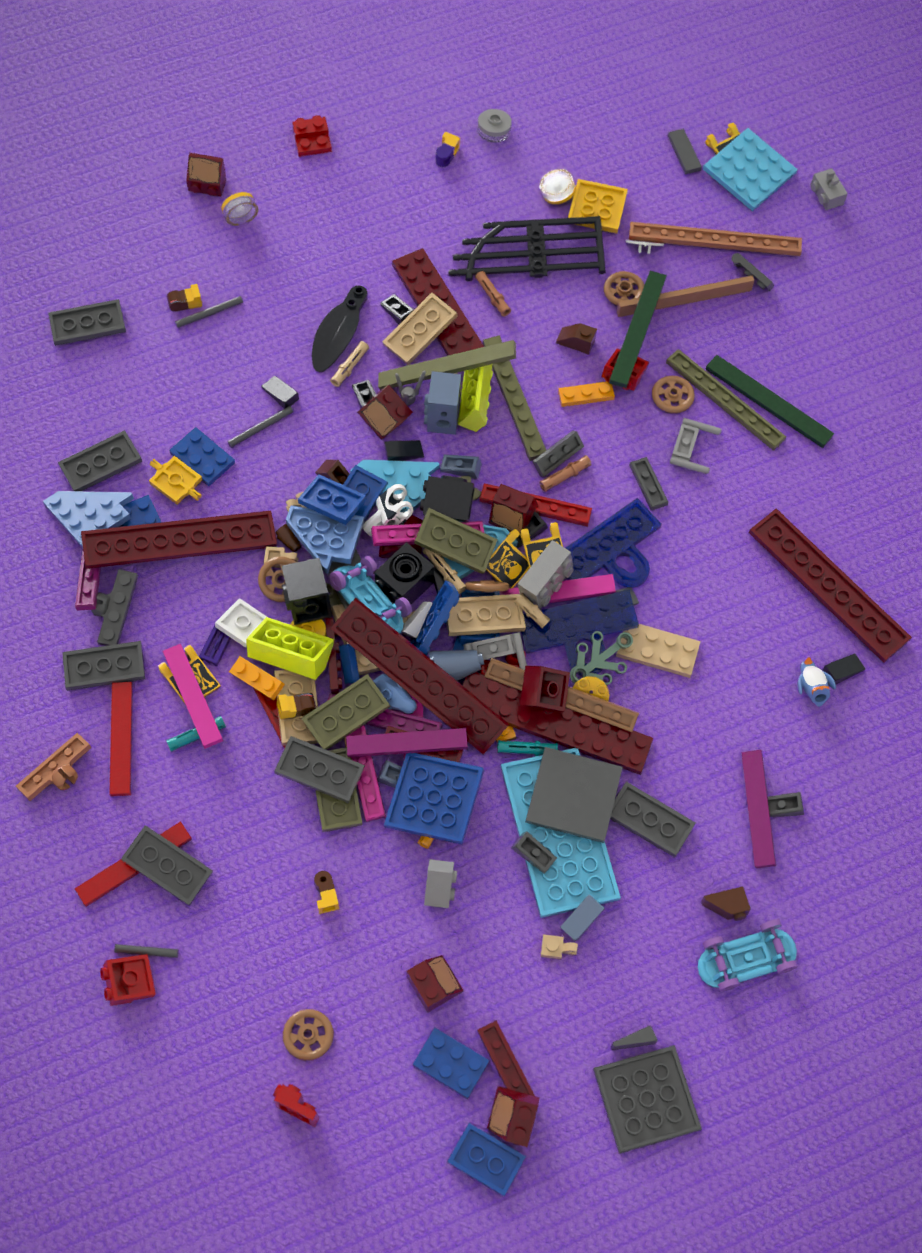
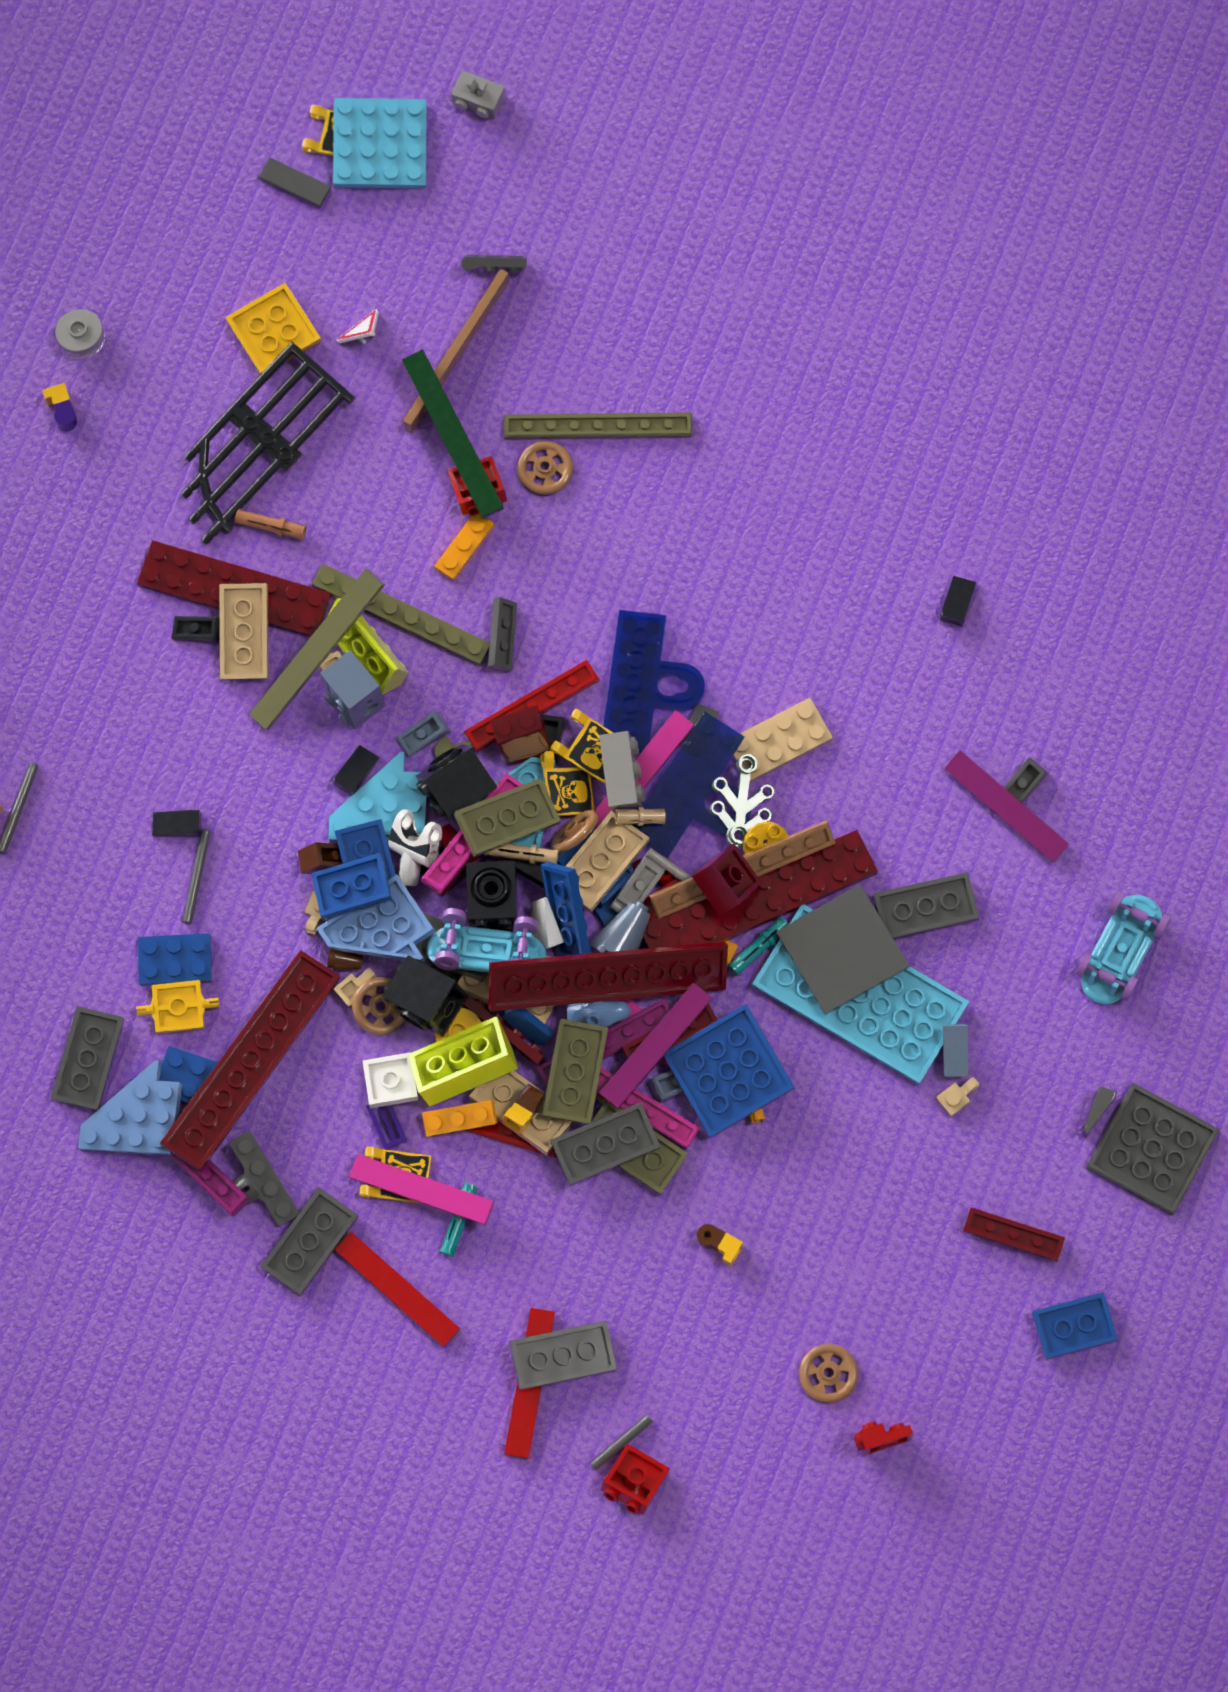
camera: 35 degrees left, 10 degrees up
(55, 768) = (372, 1371): nougat plate -> none
(337, 329) = (164, 707): black plant -> none
(338, 378) = (214, 739): tan pin -> none
(363, 392) = (264, 750): slope -> none
(385, 412) = (302, 750): slope -> none
(408, 393) = (301, 709): light grey plant -> none
(434, 982) = (888, 1227): dark red slope -> none
(439, 883) = (810, 1141): light grey brick -> none
(451, 1063) = (968, 1278): blue plate -> none
(513, 1115) = (1063, 1269): dark red slope -> none
(534, 852) = (859, 1034): dark grey slope -> none
(557, 186) = (215, 345): clear piece -> none
(571, 470) = (530, 639): nougat pin -> none
(577, 337) = (398, 495): reddish brown slope -> none
(627, 285) = (388, 379): medium nougat plate -> none
(648, 483) = (612, 583): dark grey tile -> none
(685, 444) = (607, 508): light grey plate -> none
(715, 238) = (422, 257): nougat plate -> none
(728, 903) = (1063, 917): reddish brown slope -> none
(769, 401) = (640, 388): dark green tile -> none
(815, 682) = (946, 640): animal -> none
(830, 585) = (869, 529): dark red plate -> none

